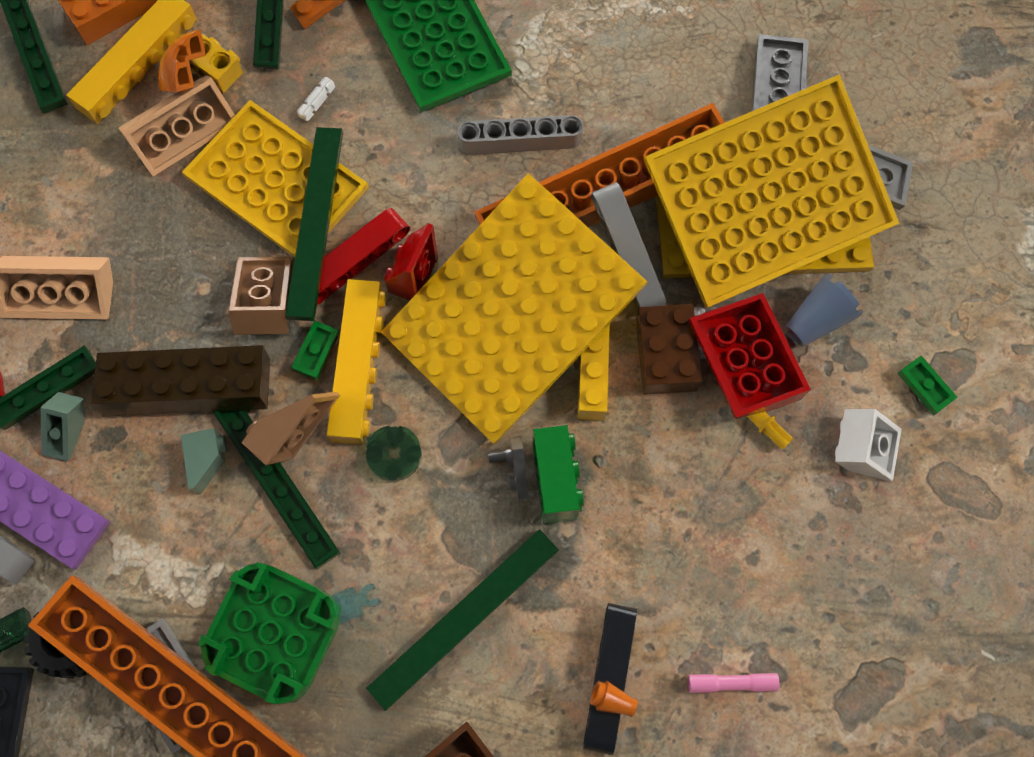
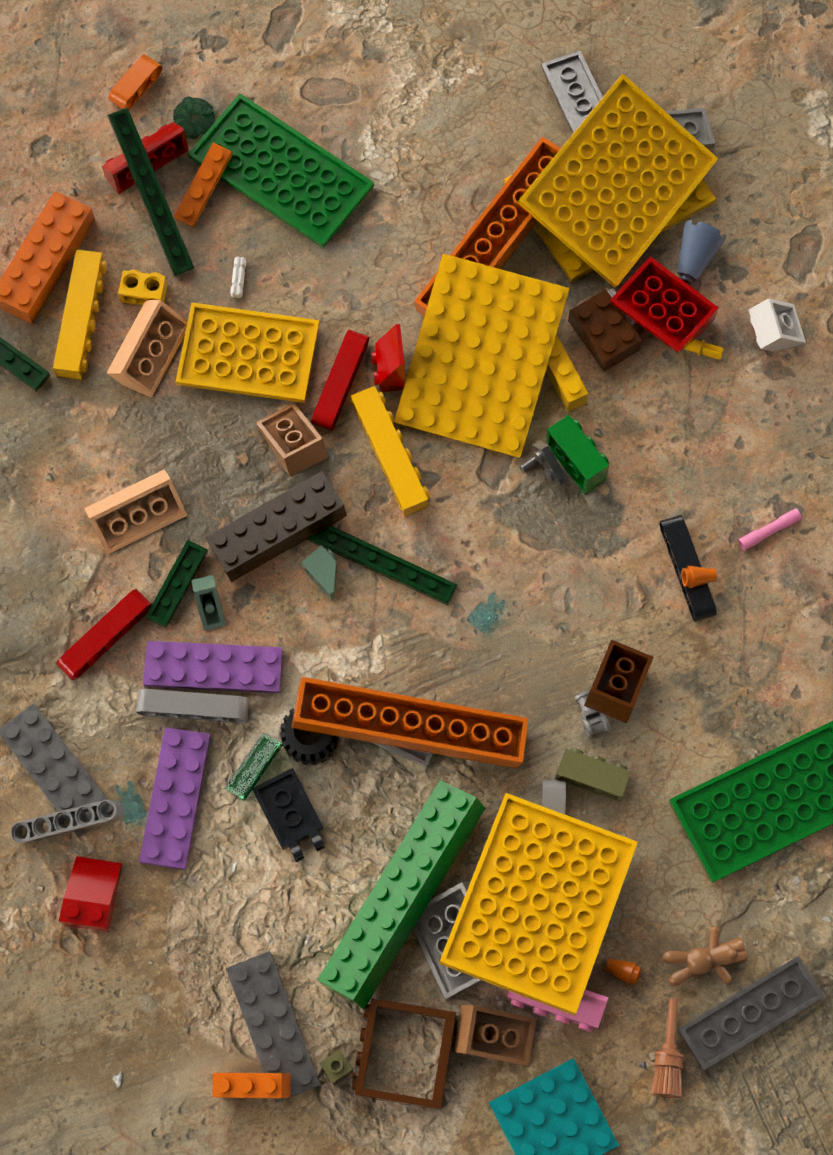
camera: 25 degrees left, 0 degrees up
(174, 68) = (126, 302): orange brick -> none
(270, 633) = (445, 656): green plate -> none
(286, 430) = (373, 522): medium nougat slope -> none
(314, 225) = (301, 367): dark green tile -> none
(315, 350) = (355, 458): green plate -> none
(393, 437) = (459, 511): clear green plate -> none
(462, 620) = (567, 583): dark green tile -> none
(530, 127) = (413, 219): light grey beam -> none
(626, 241) = (533, 265): light grey beam -> none
(927, 385) = (795, 264): green plate -> none

